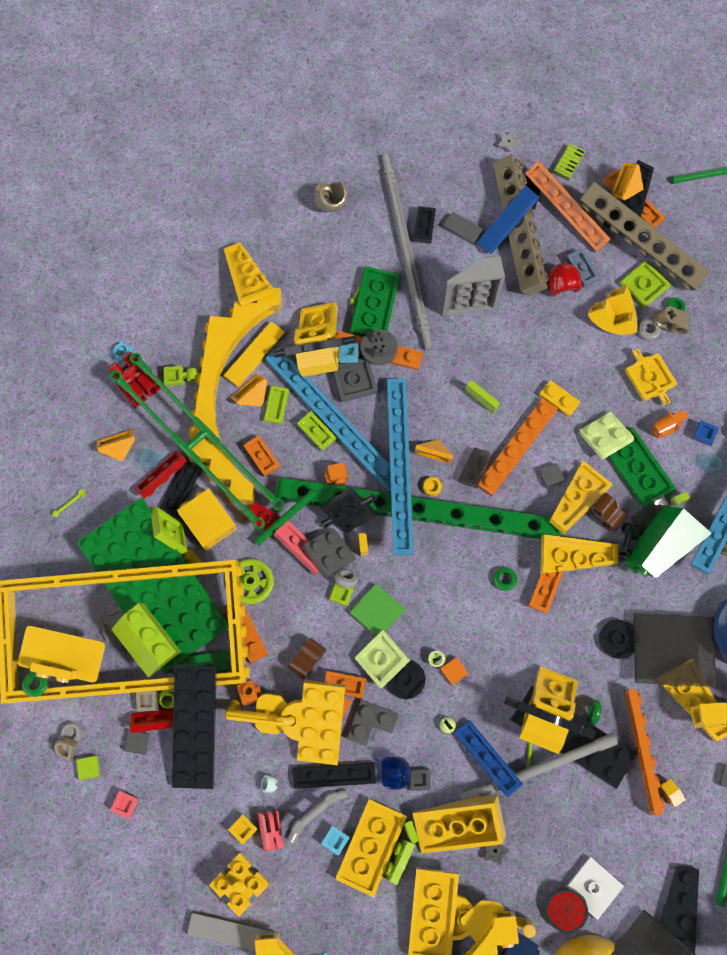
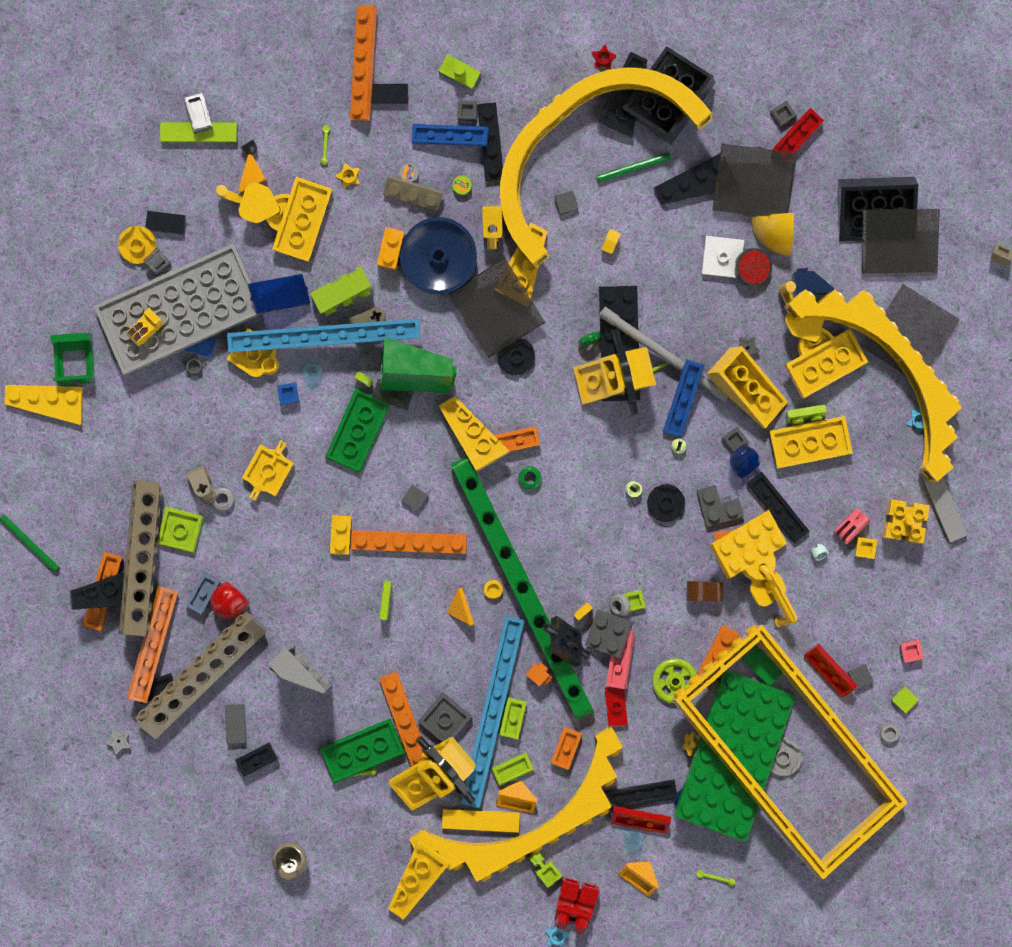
camera: 125 degrees left, 15 degrees up
(37, 692) = (877, 794): green piece -> none
(61, 655) = (841, 782): yellow bracket -> none
(66, 748) = (903, 727): dark tan tile -> none
(145, 639) = (783, 724): lime slope -> none
(147, 701) = (826, 690): dark tan plate -> none
(165, 702) = (815, 674): lime plate -> none
(168, 530) = (684, 775): lime tile -> none
(194, 726) = (818, 640): black plate -> none
(204, 432) = (605, 811): green bar -> none
(206, 519) = (650, 754): yellow brick -> none
(249, 692) = (763, 616): orange plate -> none
(285, 517) = (605, 689): green bar -> none
(314, 812) = (829, 506): light grey piece -> none
(335, 840) = (824, 472): medium azure plate -> none
(349, 353) = (429, 735): medium azure plate -> none
(354, 685) = (701, 540): orange plate -> none
(377, 610) = (627, 562): bright green tile -> none
(379, 355) = (397, 723): dark grey plate -> none
(382, 659) = (664, 531): yellowish green plate -> none
(399, 468) = (497, 627): dark azure plate -> none
(406, 251) = (295, 755): light grey axle -> none
(410, 830) = (778, 420): lime tile -> none
(454, 671) = (633, 469): orange tile -> none
(475, 467) = (453, 564): clear smoke plate -> none
(508, 219) = (206, 687): blue tile -> none
(569, 162) = (102, 673): lime tile -> none
(579, 497) = (415, 461): yellow wing -> none
(606, 435) = (348, 474): yellowish green plate -> none
(608, 511) = (417, 431): reddish brown axle -> none
(616, 312) = (227, 537): yellow brick -> none
(628, 182) = (101, 604): light orange slope -> none
(631, 533) = (420, 401): black bar -> none
(646, 761) = (599, 276): orange plate -> none
(668, 424) = (304, 429): orange arm -> none
(676, 303) = (183, 490): green tile -> none

